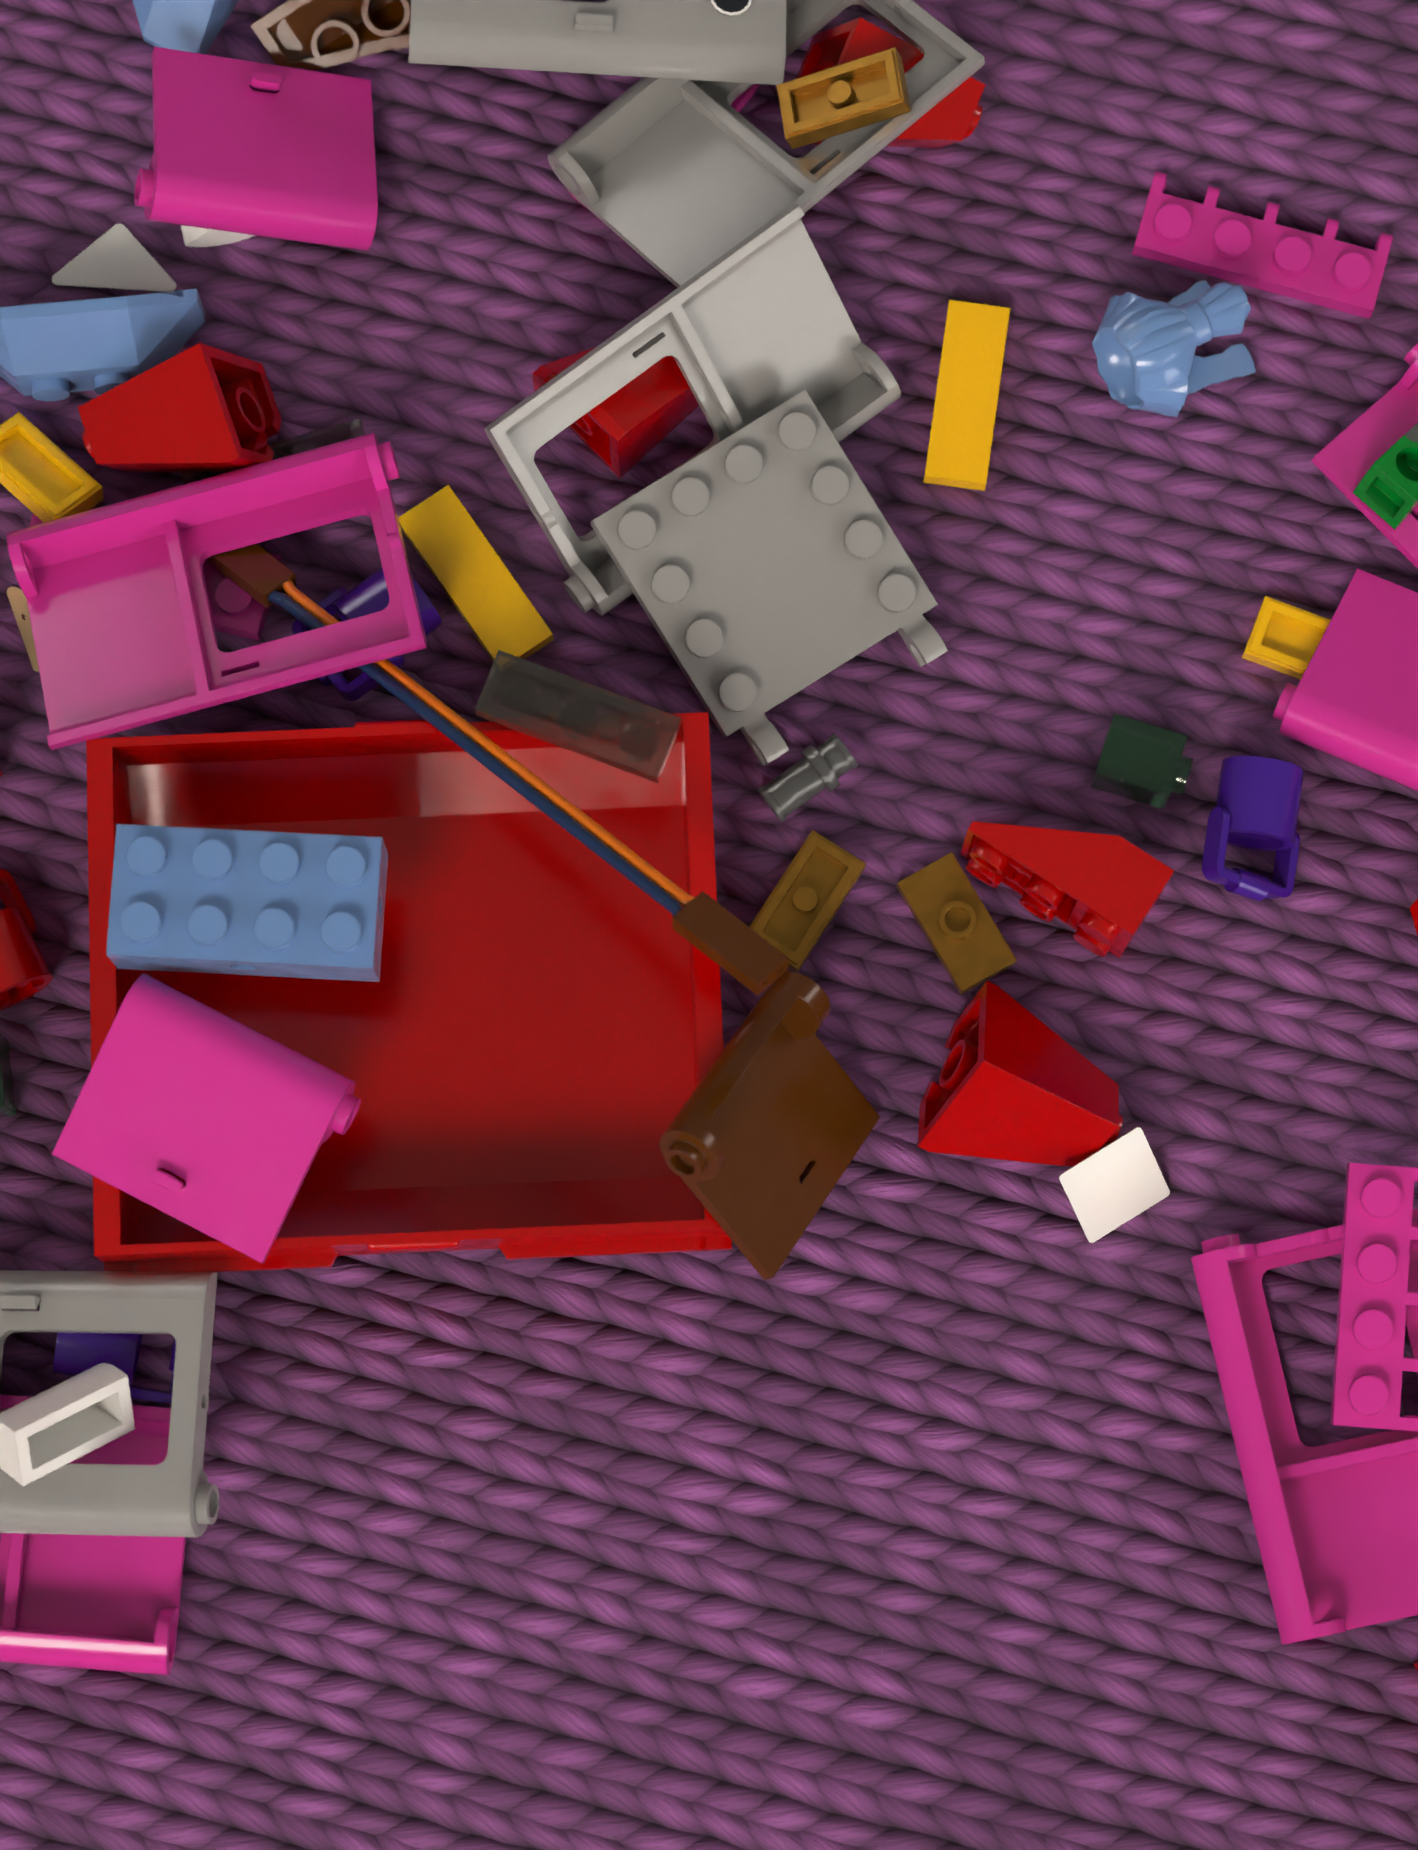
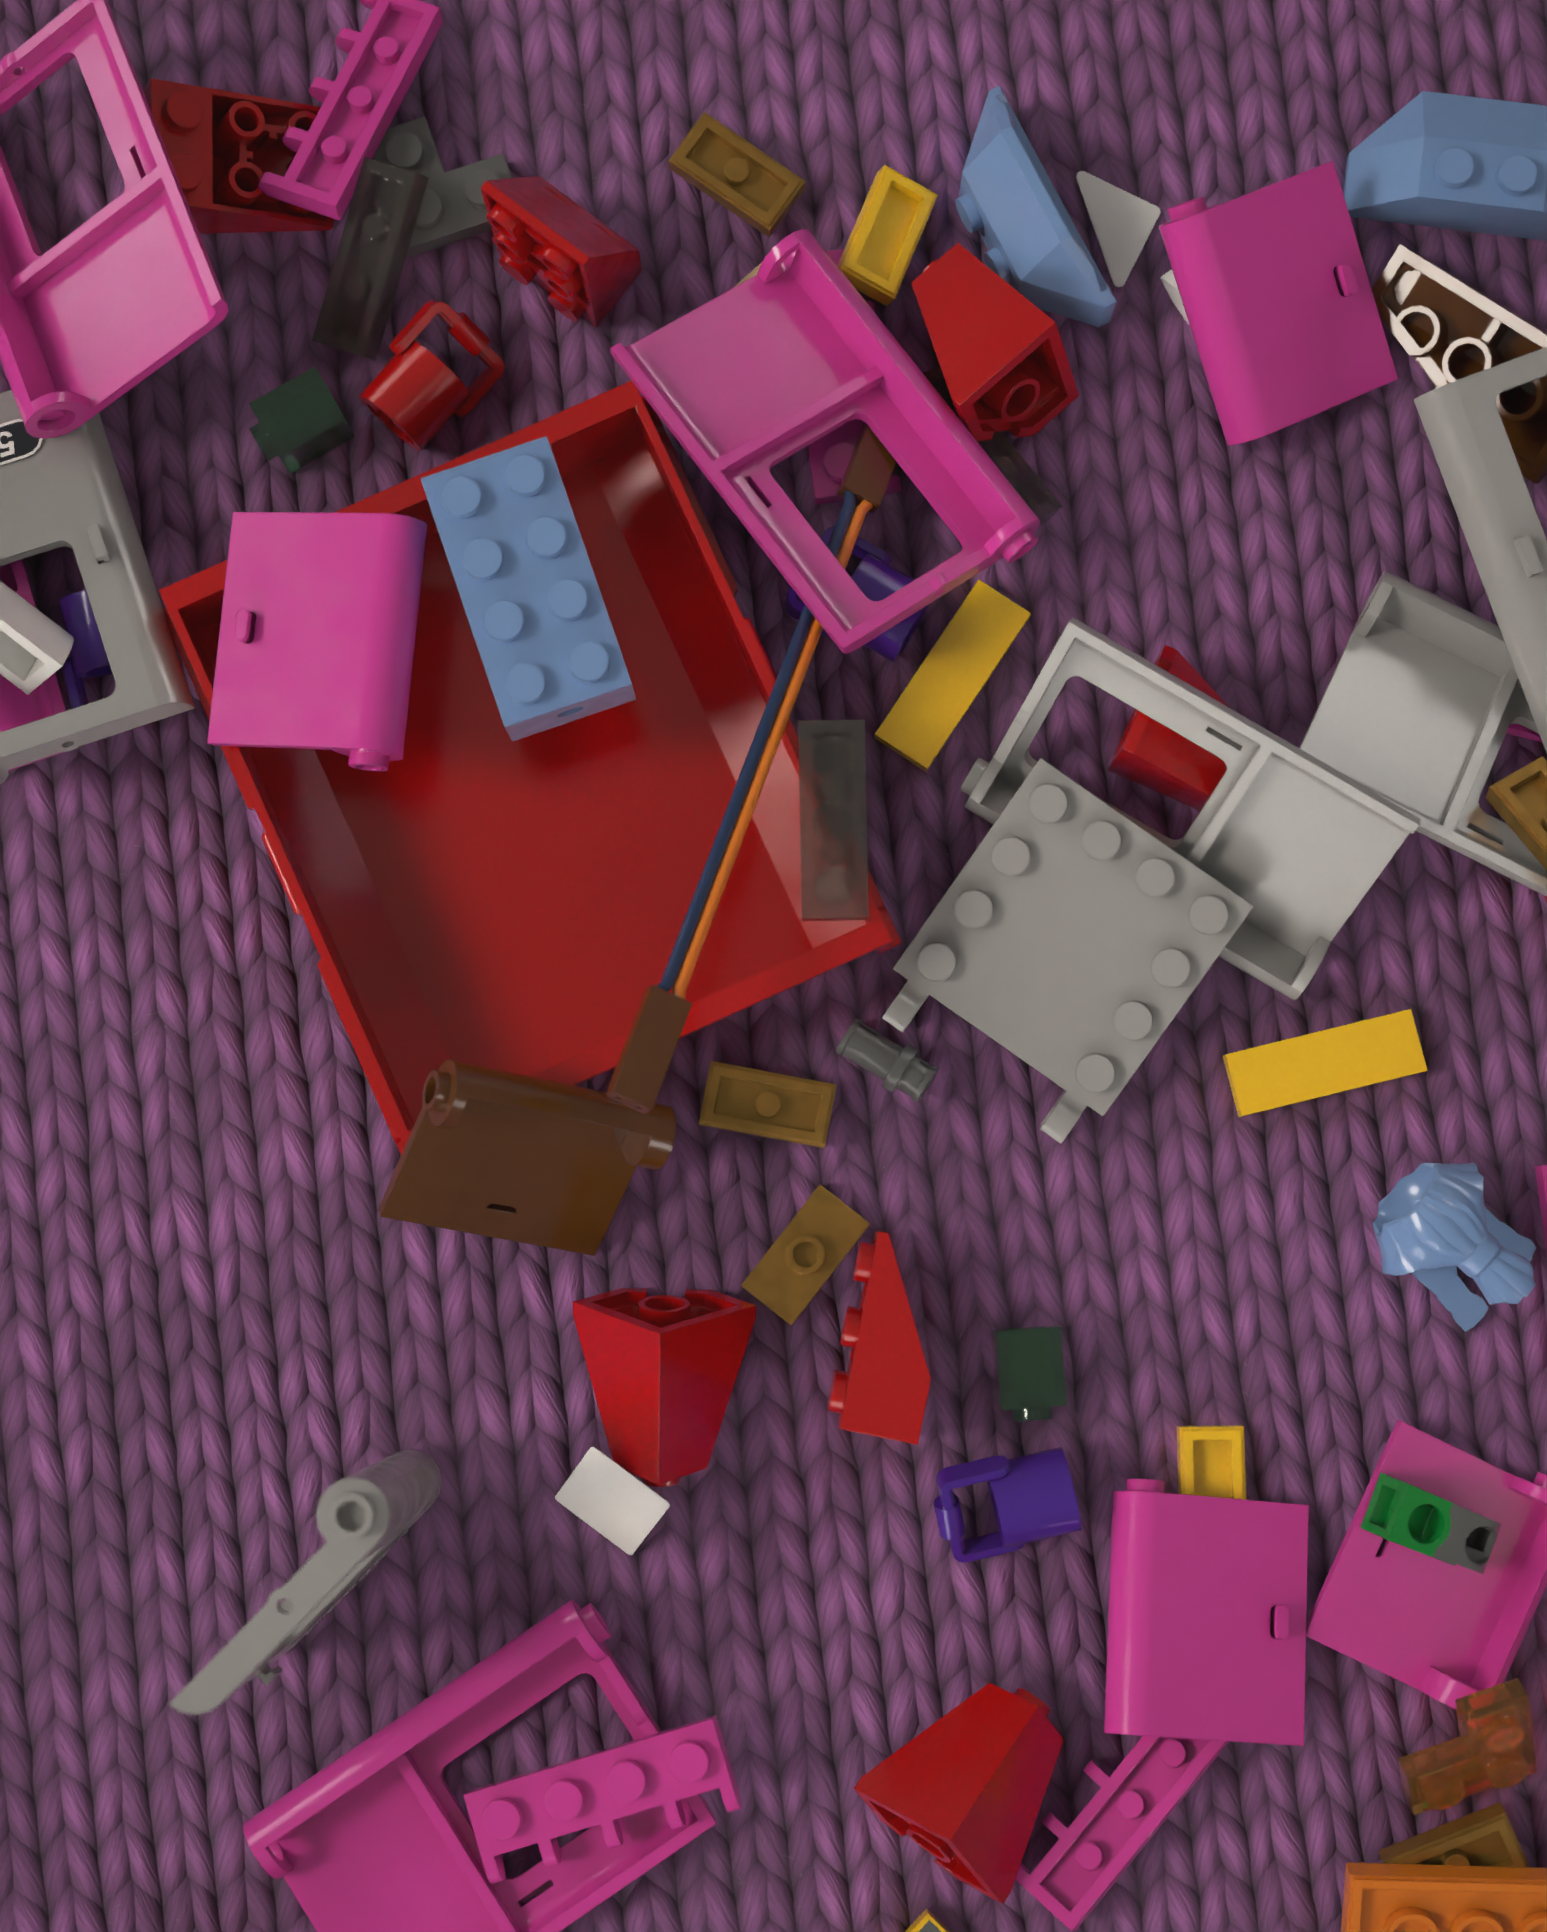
camera: 70 degrees right, 5 degrees up
(1076, 1377) = (361, 1523): none -> light grey piece

